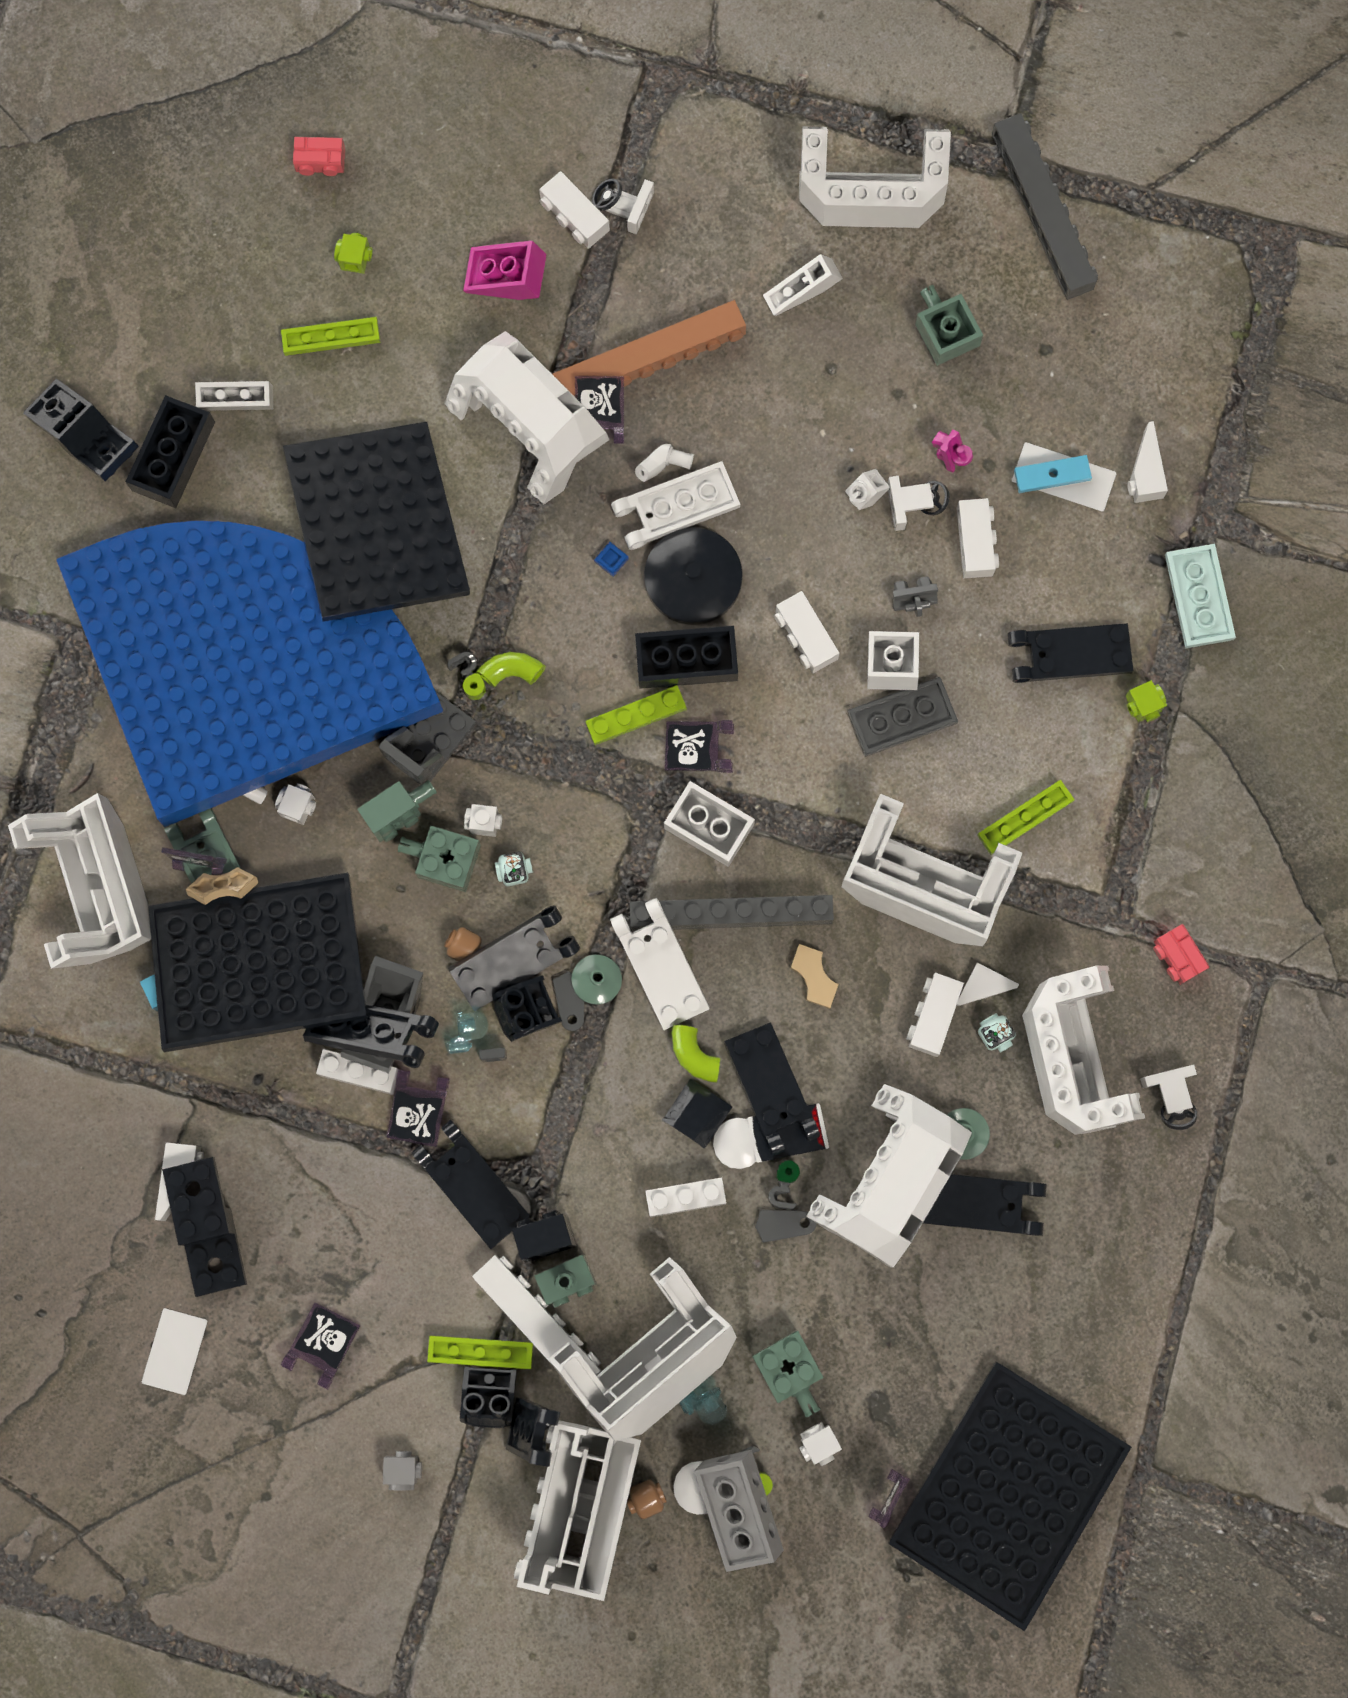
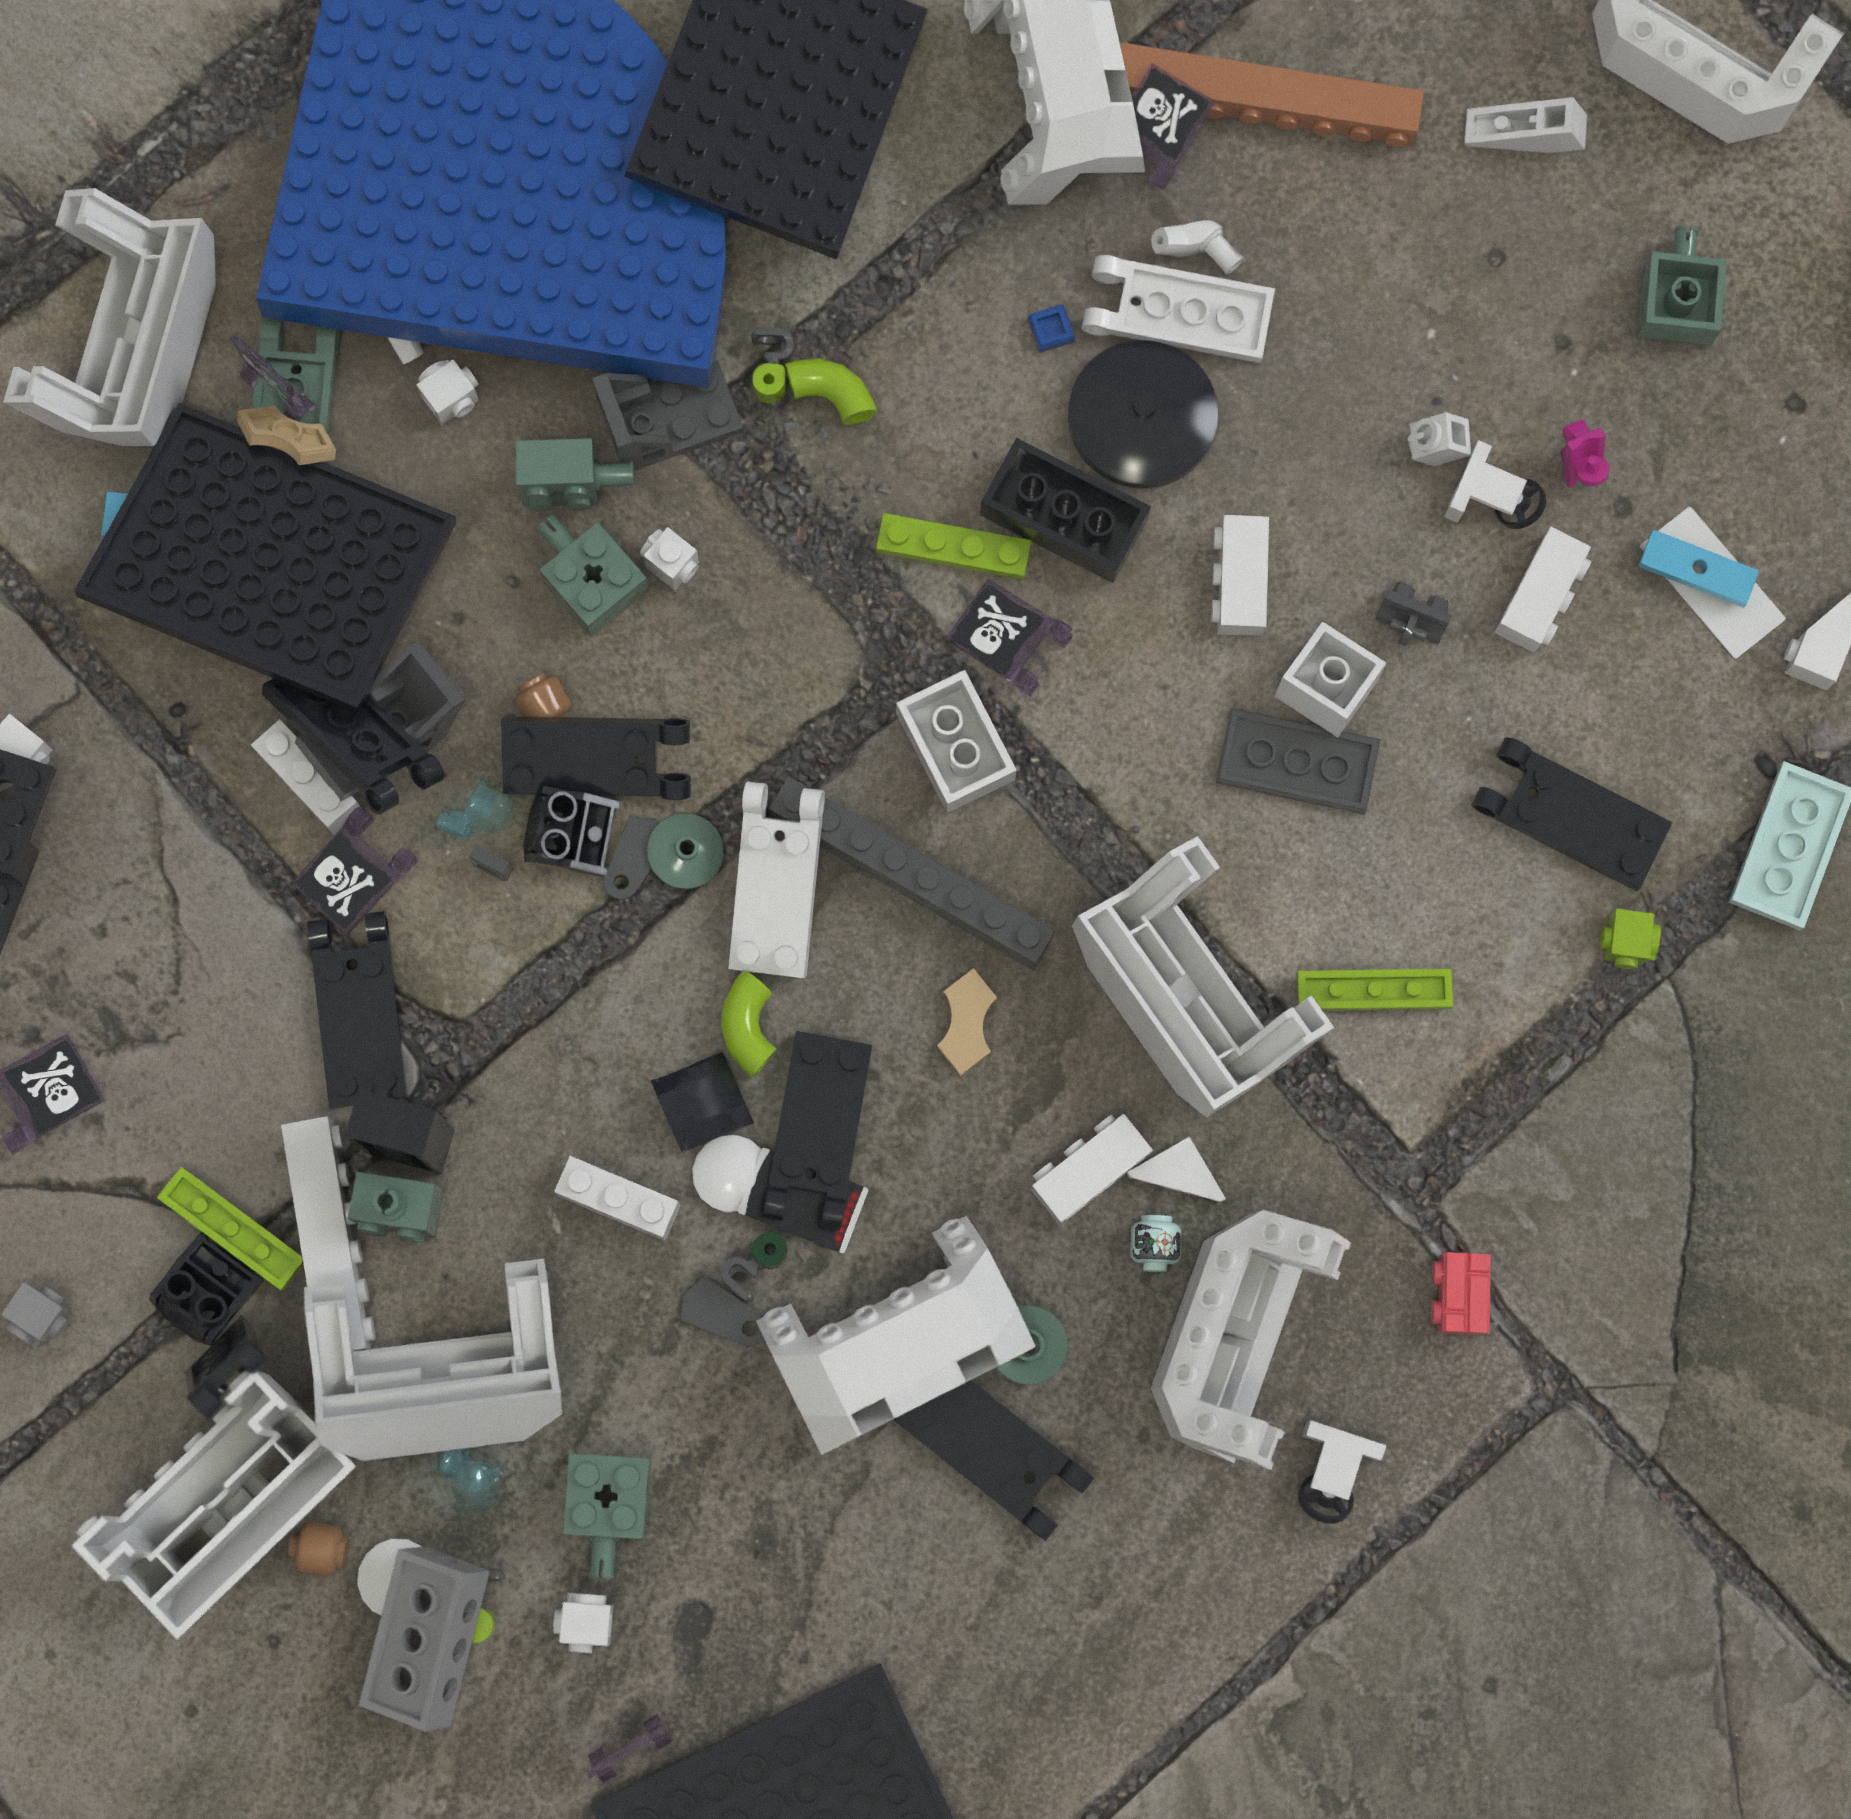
camera: 25 degrees right, 0 degrees up
(513, 869) = (669, 644): light aqua head -> none

